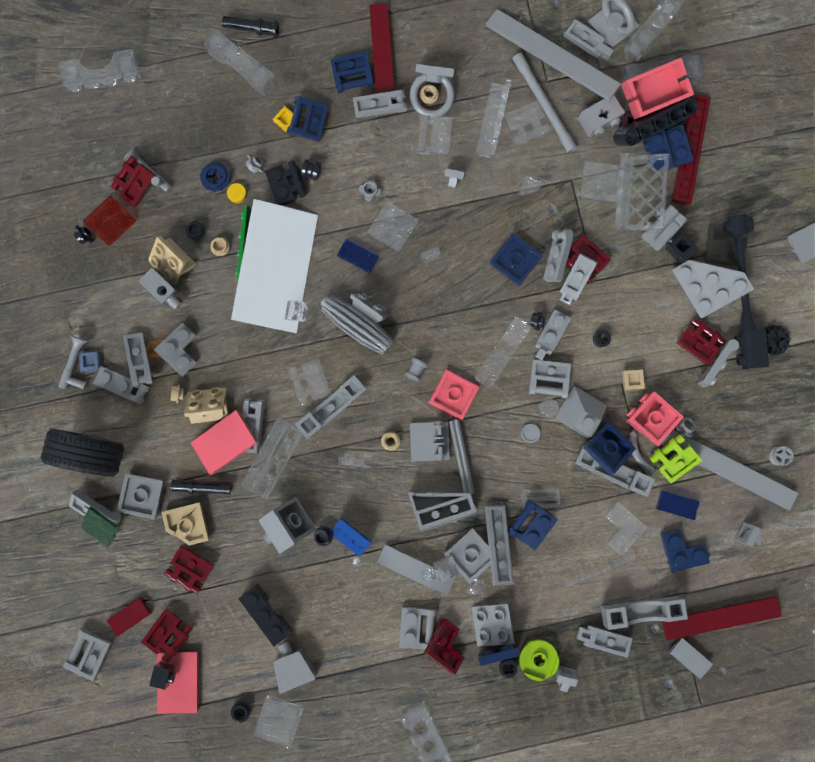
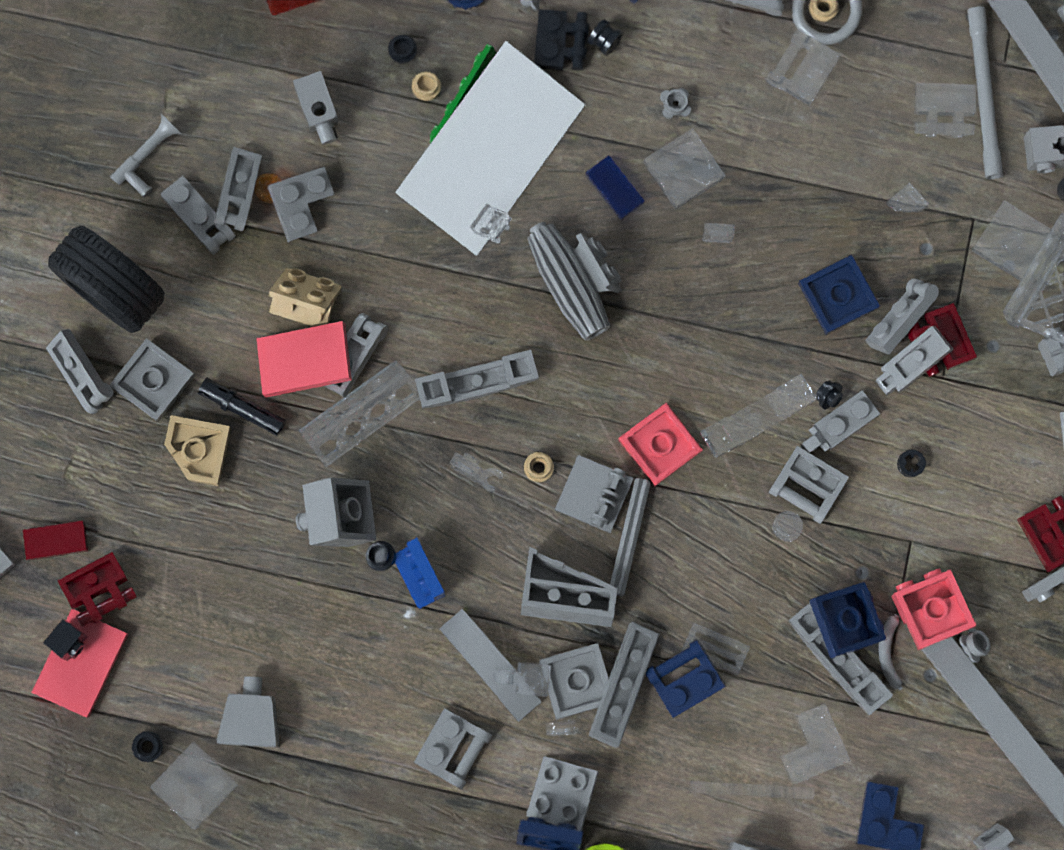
camera: 25 degrees right, 5 degrees down
(90, 361) = (170, 162): sand blue tile -> none
(99, 526) = (75, 395): clear green piece -> none
(170, 259) = (348, 72): tan bracket -> none
(176, 393) = (269, 261): tan plate -> none
(193, 565) = (177, 507): dark red plate -> none
(236, 193) = (485, 23): yellow tile -> none
(259, 608) = (246, 625): black arch -> none
(315, 379) = (473, 332): clear plate -> none
(415, 369) = (622, 383): light grey bush -> none
(440, 648) = (471, 791): dark red plate -> none
(454, 175) = (804, 137): light grey tile -> none
(492, 119) = (898, 83): clear fence -> none
(530, 433) = (744, 550): light grey piece -> none
(581, 412) = (831, 553): light grey slope -> none
(633, 380) = (929, 542): tan plate -> none
(677, 505) = (910, 751): clear blue tile -> none
(678, 464) = (941, 690): lime plate -> none

